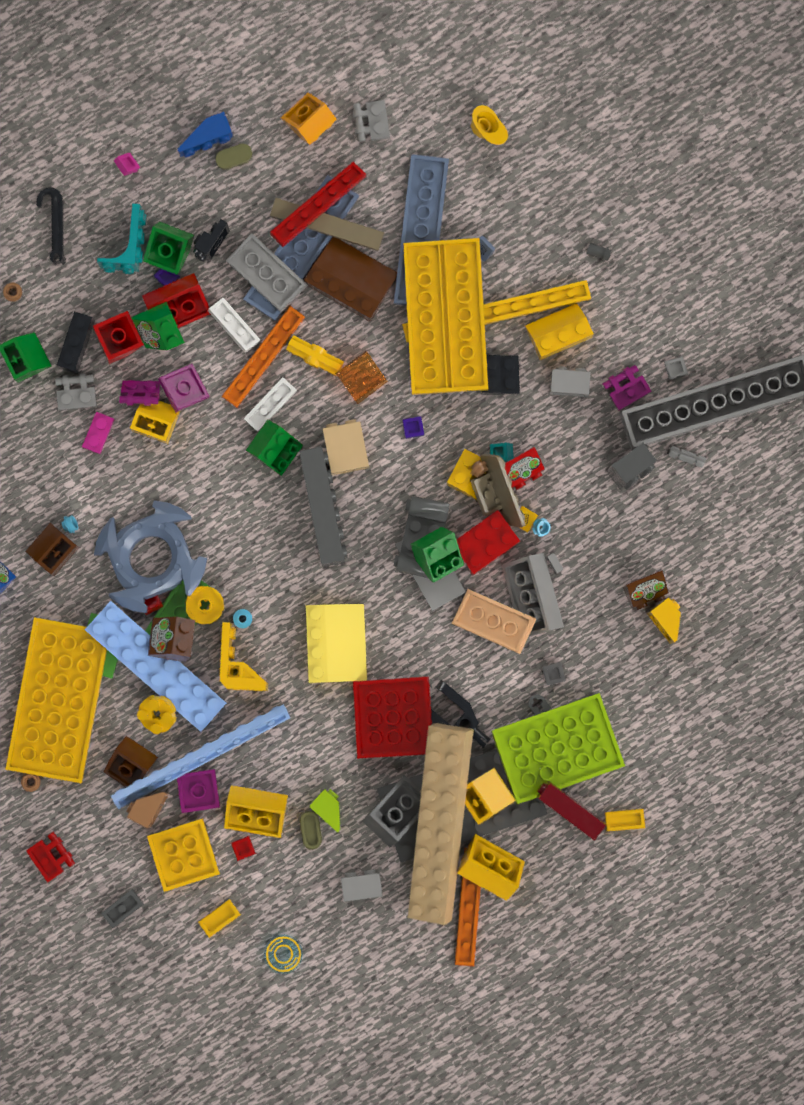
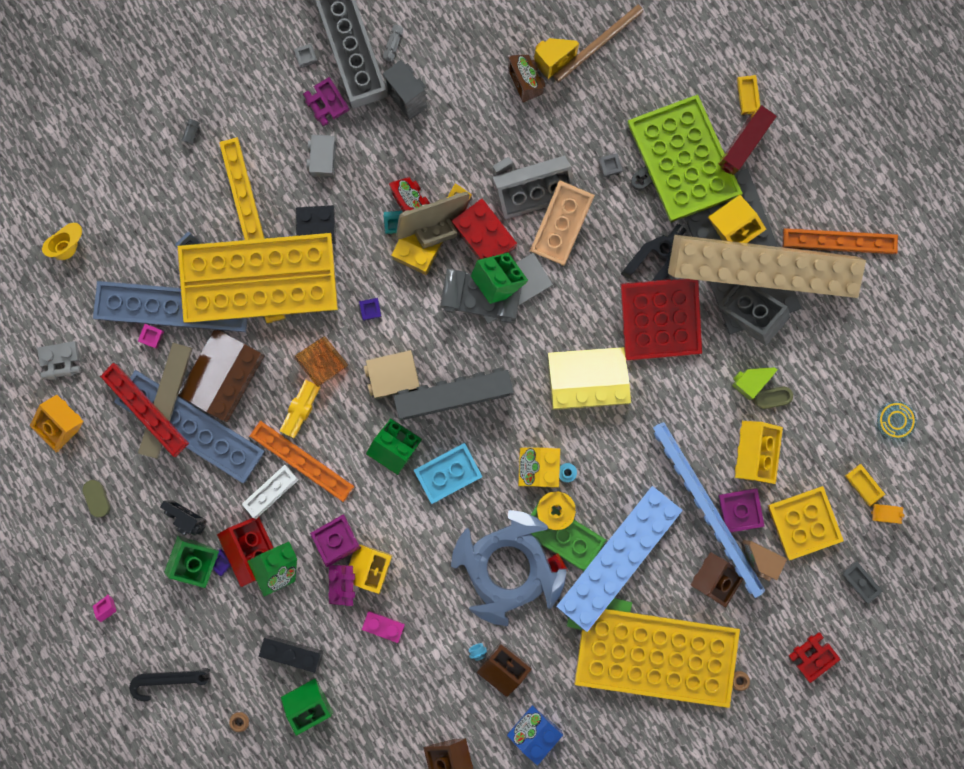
camera: 90 degrees left, 0 degrees up
(76, 398) = (348, 651): light grey plate -> none
(118, 337) = (284, 610): red slope -> none
(133, 255) = (204, 601): teal bracket -> none
(152, 722) = (675, 558): yellow plate -> none
(171, 638) = (592, 542): reddish brown slope -> none
(189, 937) = (887, 513): none -> light orange piece
(209, 132) = (69, 521): blue slope -> none
(243, 848) = (794, 464): red tile -> none
(246, 500) = (448, 473): none -> medium azure plate
(246, 677) = (628, 464): yellow bracket -> none
(248, 590) = (539, 467): none -> yellow slope
(266, 273) = (215, 460): light grey tile -> none
(270, 404) = (350, 452): white plate -> none
(361, 886) = (827, 345): light grey brick -> none
(392, 210) = (150, 336): none -> dark pink plate
(479, 469) = (412, 239): medium nougat plate -> none
(491, 867) = (803, 218): yellow slope -> none
(545, 527) = (466, 180): medium azure plate -> none
(559, 331) = (270, 168): yellow slope -> none
(682, 666) = (598, 43): none -> medium nougat piece

